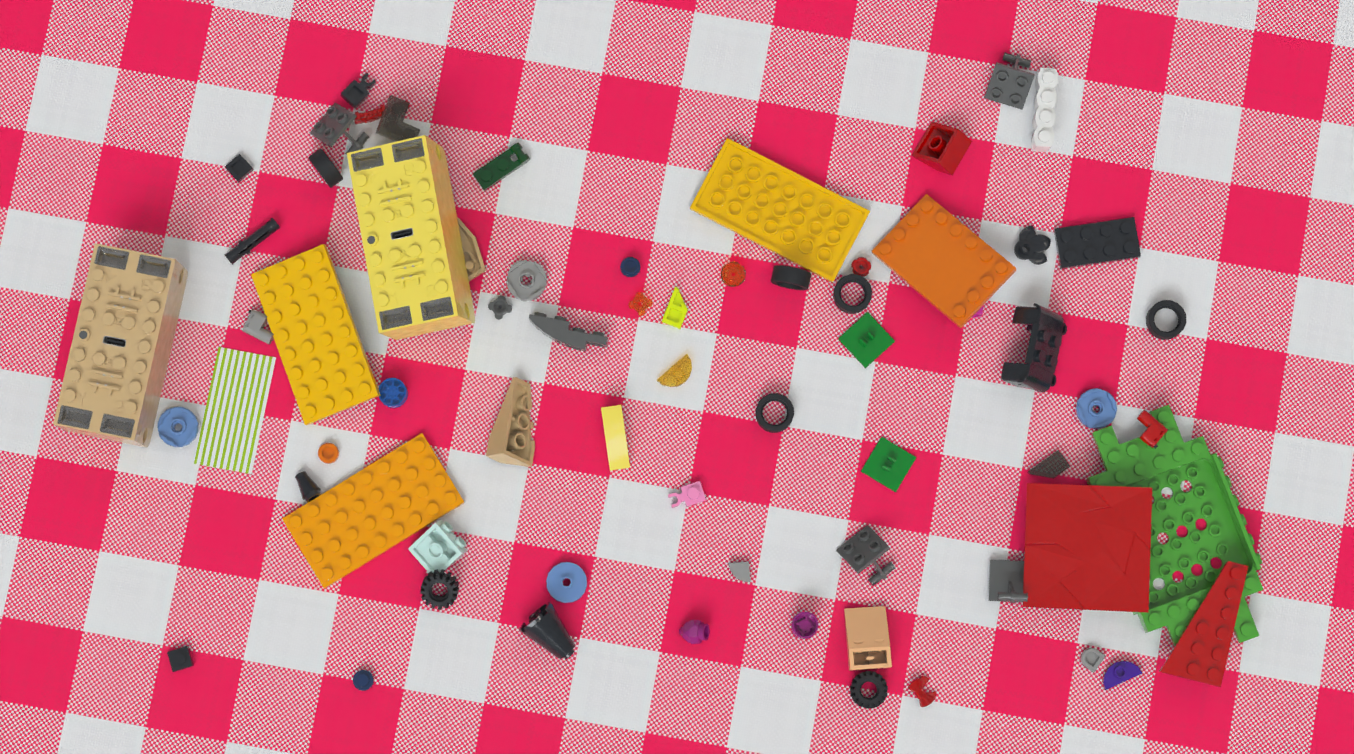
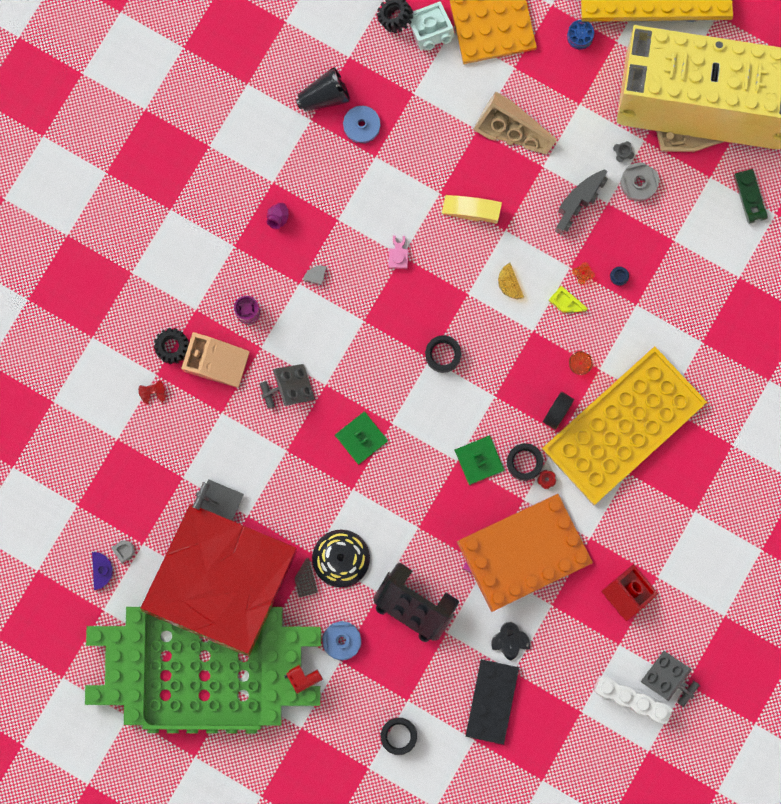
camera: 115 degrees right, 0 degrees up
(1003, 447) = (355, 560): none -> black dish
(1207, 638) = (99, 655): red wing -> none

